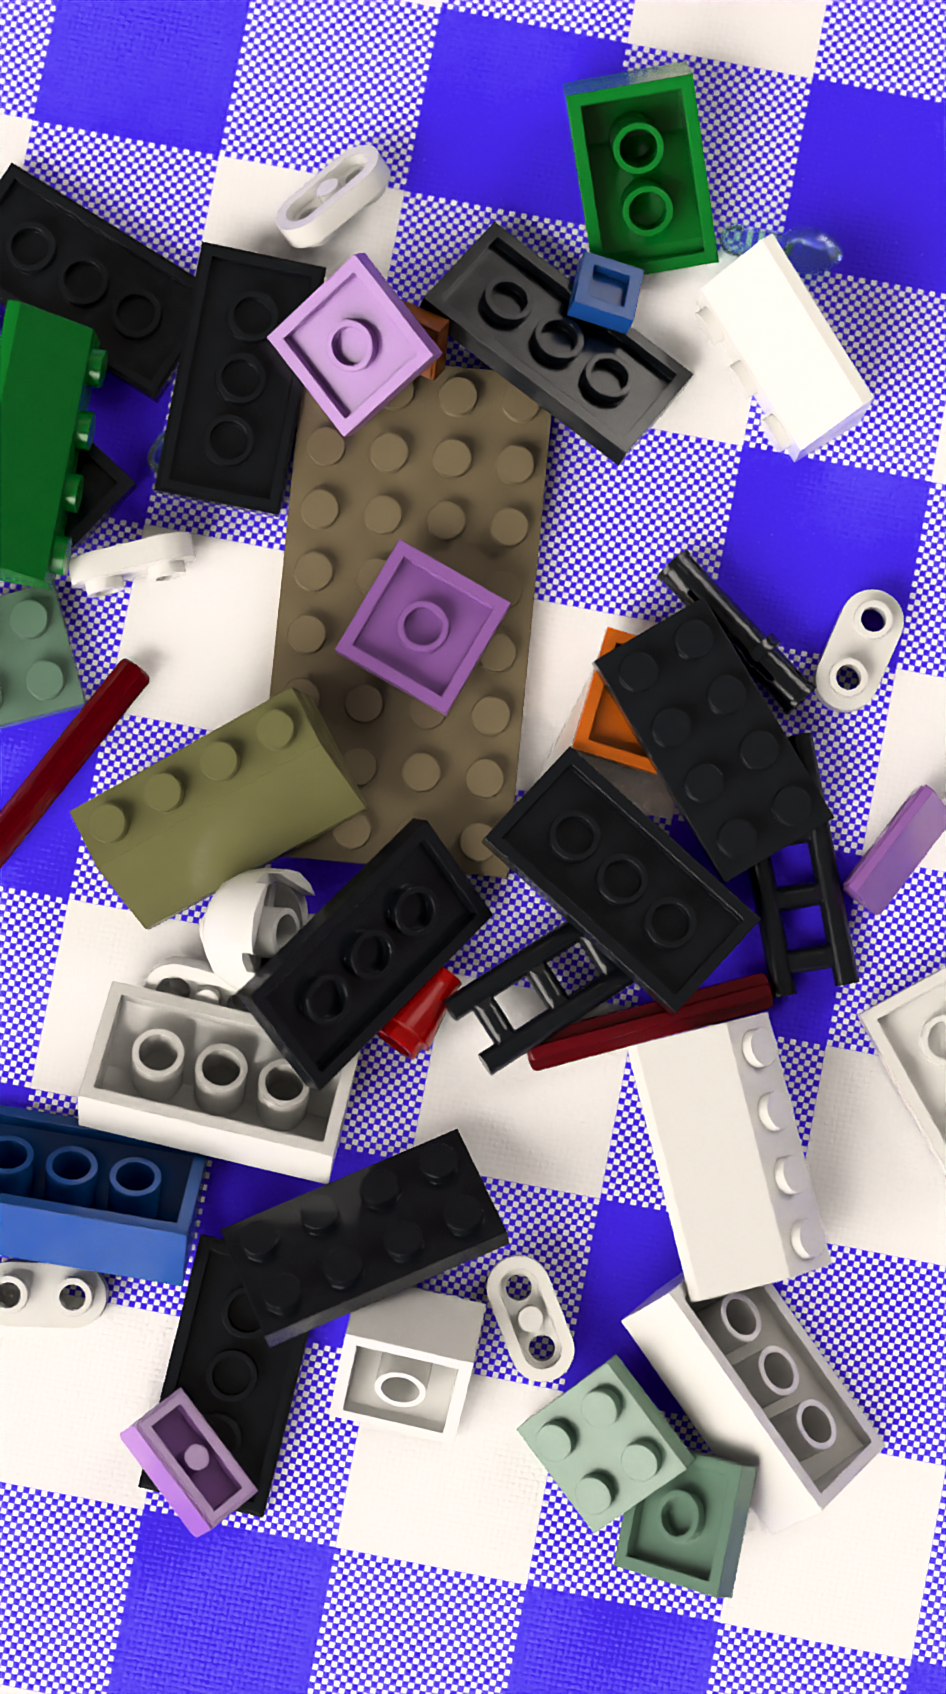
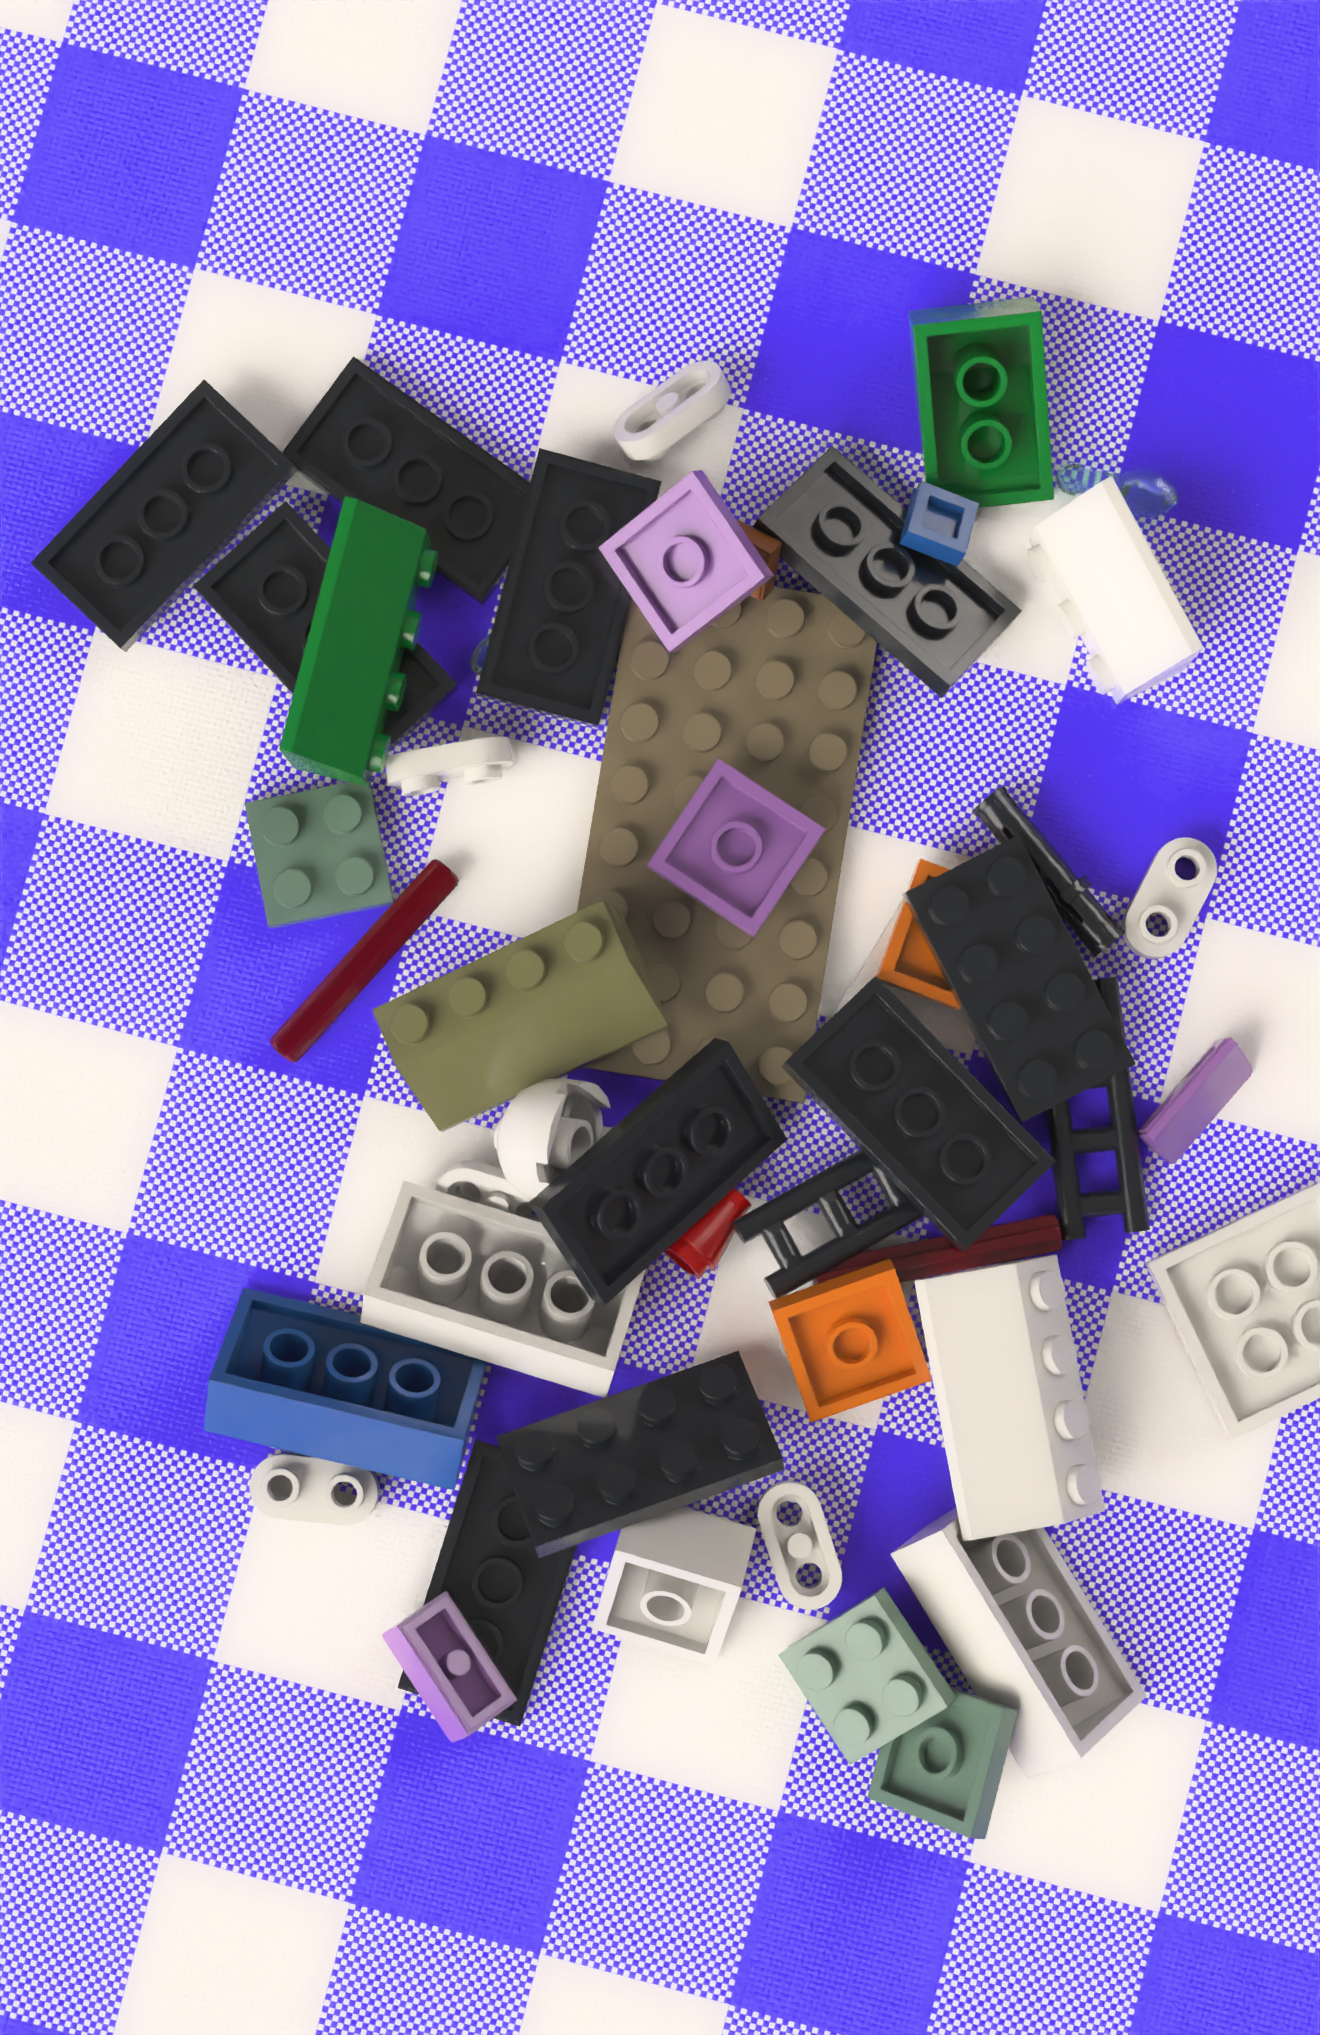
camera: 10 degrees right, 0 degrees up
(567, 1111) = (850, 1340): none -> orange plate

